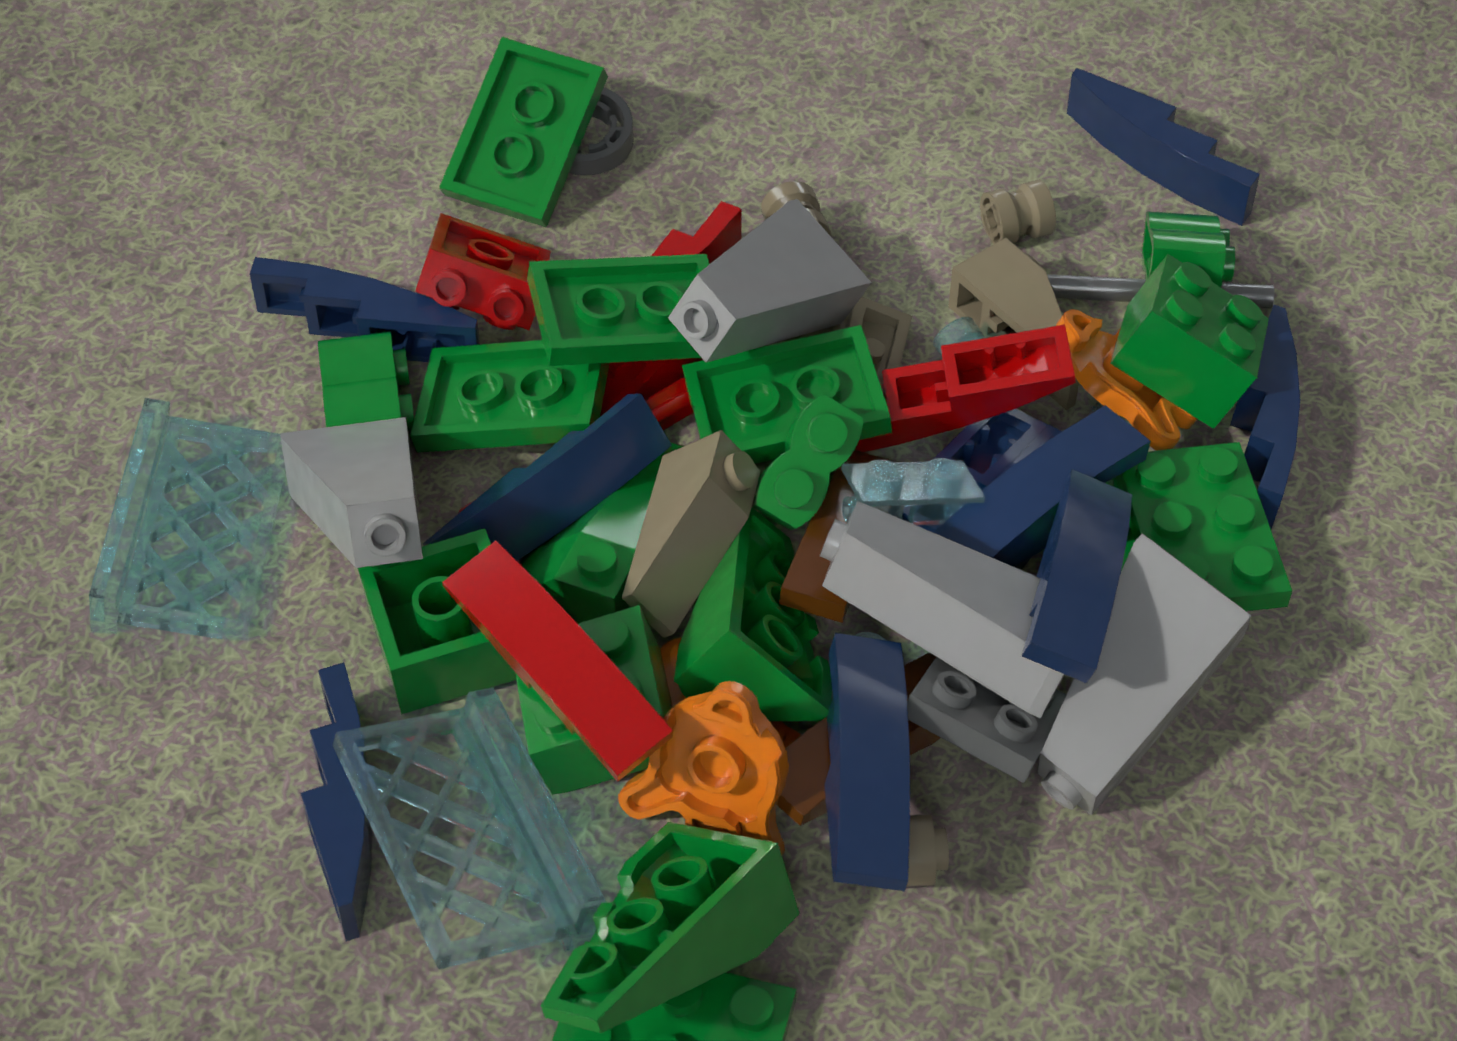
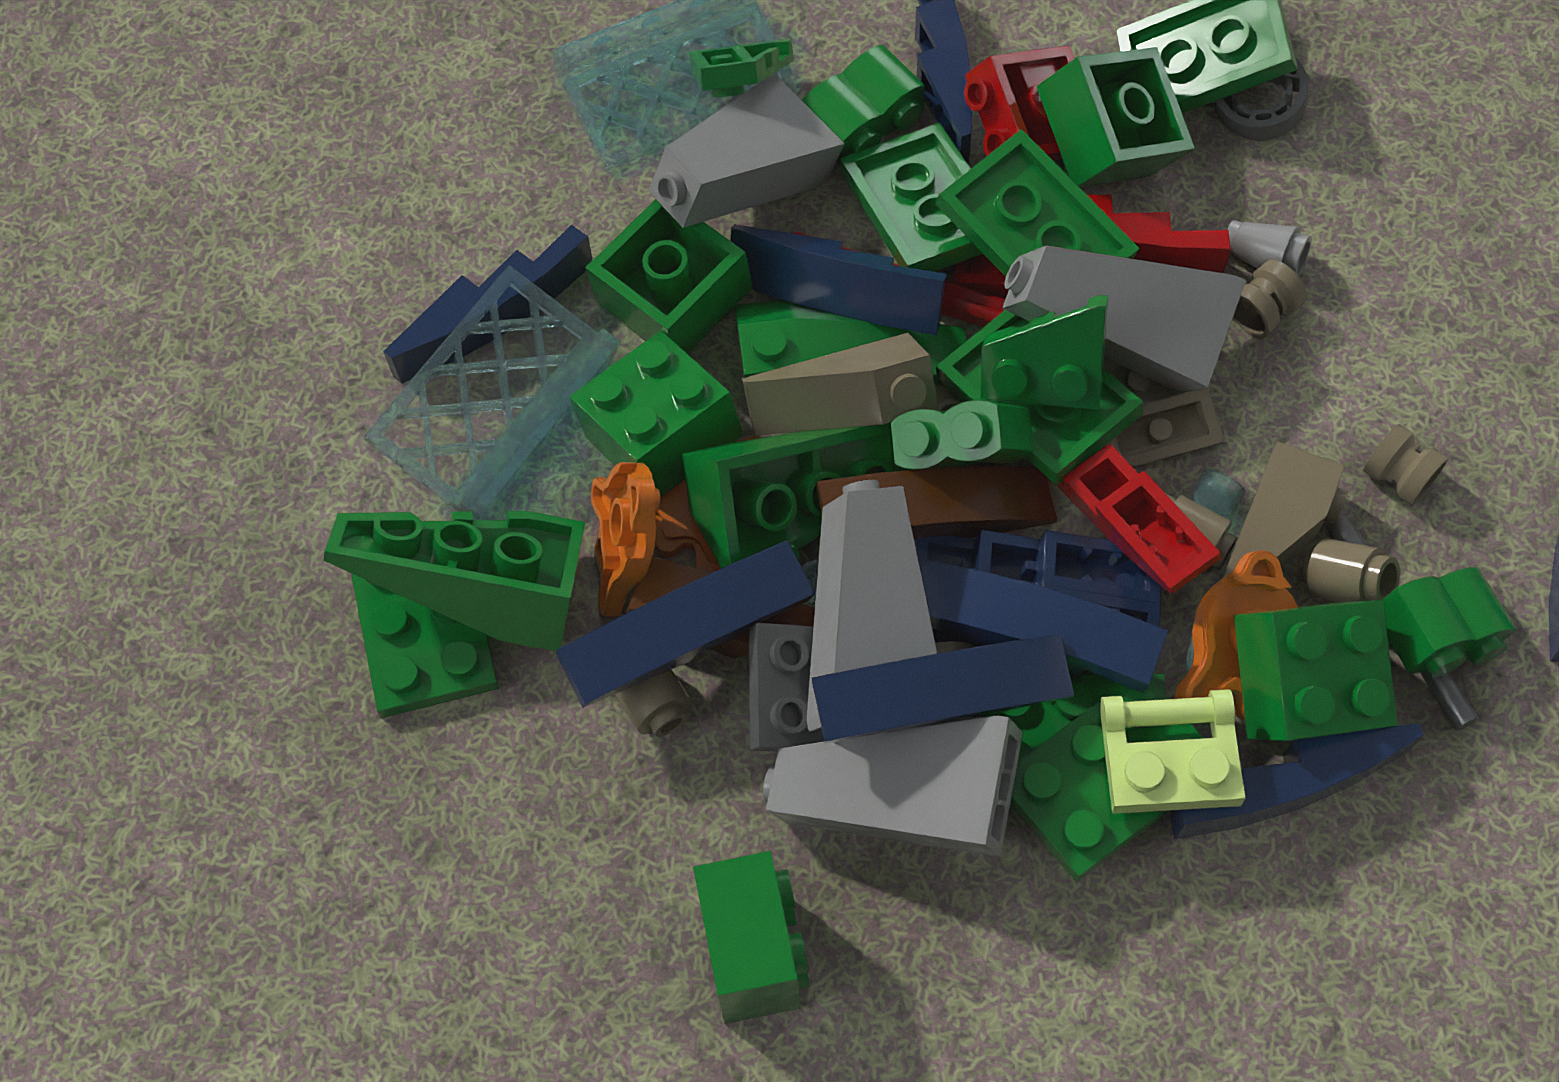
camera: 65 degrees right, 15 degrees up
(250, 451) = (732, 67): none -> green wing
(550, 210) = (1115, 116): none -> green brick
(558, 660) = (626, 361): red slope -> none
(745, 190) = (1260, 242): none -> light grey cone
(787, 352) = (1049, 359): none -> green wing
(931, 488) = (976, 522): clear light blue hinge -> none
(1103, 285) = (1349, 571): none -> dark tan brick
(1228, 867) = (747, 936): none -> green brick
(1237, 471) = (1173, 771): none -> yellowish green plate

